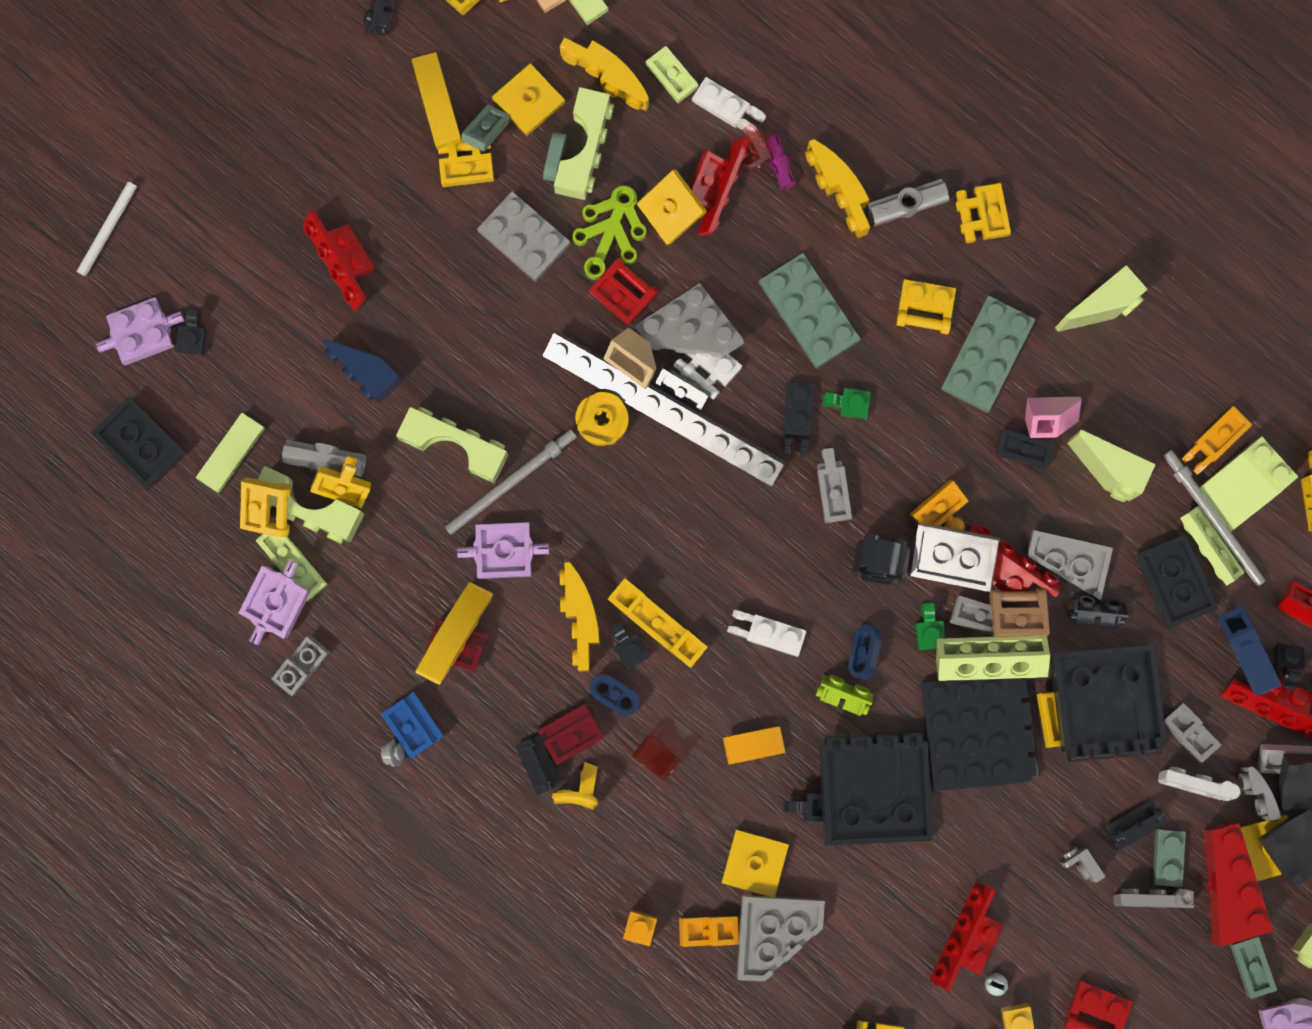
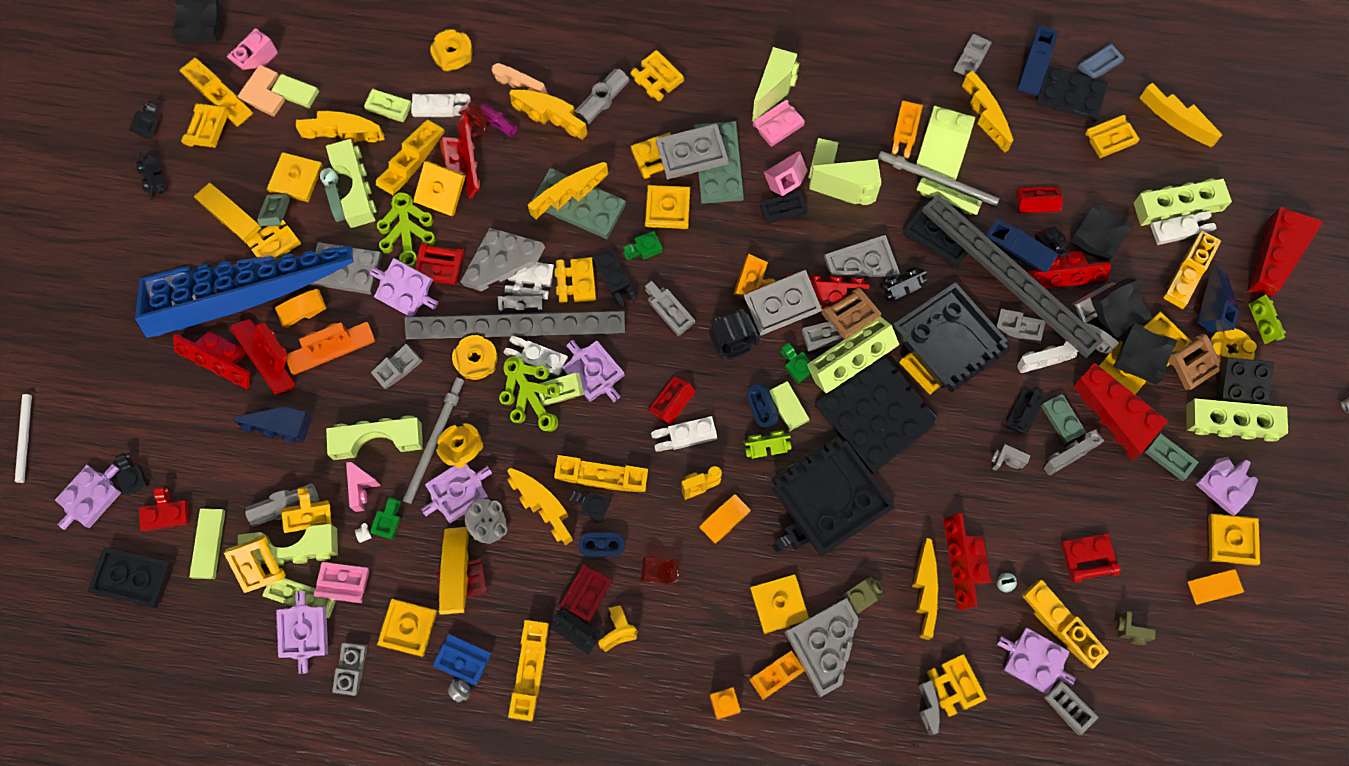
camera: 30 degrees left, 10 degrees down
(204, 395) = (164, 513): none -> red plate
(339, 575) = (341, 582): none -> bright pink plate
(364, 179) = (203, 294): none -> blue wedge
(377, 660) = (407, 627): none -> yellow plate
(386, 537) = (362, 533): none -> white hand
(391, 284) = (265, 353): none -> red bracket
(411, 478) = (356, 482): none -> bright pink slope
(415, 540) = (387, 523): none -> green plate
(454, 254) = (301, 306): none -> light orange slope
(460, 315) = (328, 345): none -> orange bracket
(470, 776) = (529, 670): none -> yellow slope
(508, 611) = (485, 530): none -> light grey plate
(517, 380) = (397, 367): none -> light grey slope
(537, 517) = (466, 452): none -> yellow plate
(565, 125) = (331, 176): none -> light aqua hinge
(571, 298) = (403, 287): none -> lavender plate
(632, 357) = (471, 301): tan slope -> none
(634, 489) = (527, 391): none -> lime plant
(662, 150) = (409, 159): none -> yellow slope
(667, 457) = (538, 355): none -> white hinge
(668, 508) = (569, 386): none -> yellowish green plate
(714, 508) = (596, 370): none -> lavender plate
(744, 694) = (698, 484): none -> yellow plate
(762, 401) = (582, 278): none -> yellow plate
(776, 587) = (672, 400): none -> red slope
(790, 40) = (456, 59): none -> yellow plate
(816, 294) = (574, 186): none -> yellow slope
(828, 129) = (517, 79): none -> light nougat hinge
(845, 908) = (864, 594): none -> olive bracket
(892, 668) = (788, 406): none -> yellowish green tile
(901, 373) = (667, 207): none -> yellow plate
(916, 931) = (927, 581): none -> yellow slope
(964, 328) = (692, 151): none -> light grey plate
(1081, 348) = (778, 123): none -> bright pink plate
(1105, 417) = (824, 153): none -> yellowish green tile
(1216, 677) = (1012, 276): none -> dark grey plate

